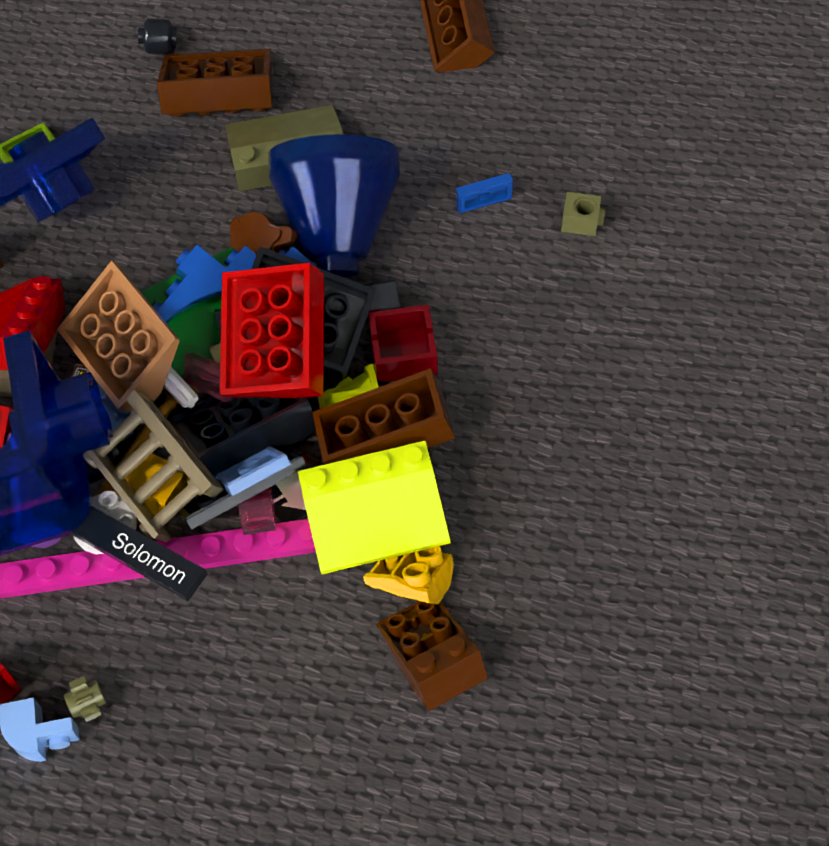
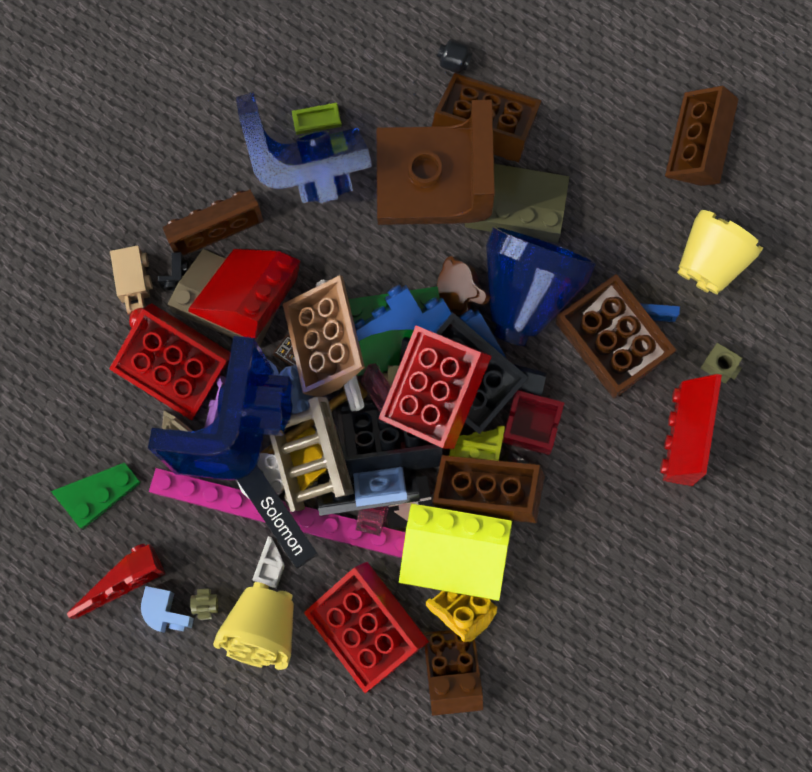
camera: 25 degrees right, 15 degrees up
(153, 625) = (269, 566): none -> white tile
(166, 695) = (259, 628): none -> light yellow cone
(189, 132) = (437, 171): none -> reddish brown piece
(301, 643) = (365, 626): none -> red slope
(452, 227) = (614, 336): none -> reddish brown slope
(524, 105) = (716, 252): none -> light yellow cone
(583, 281) = (691, 430): none -> red slope

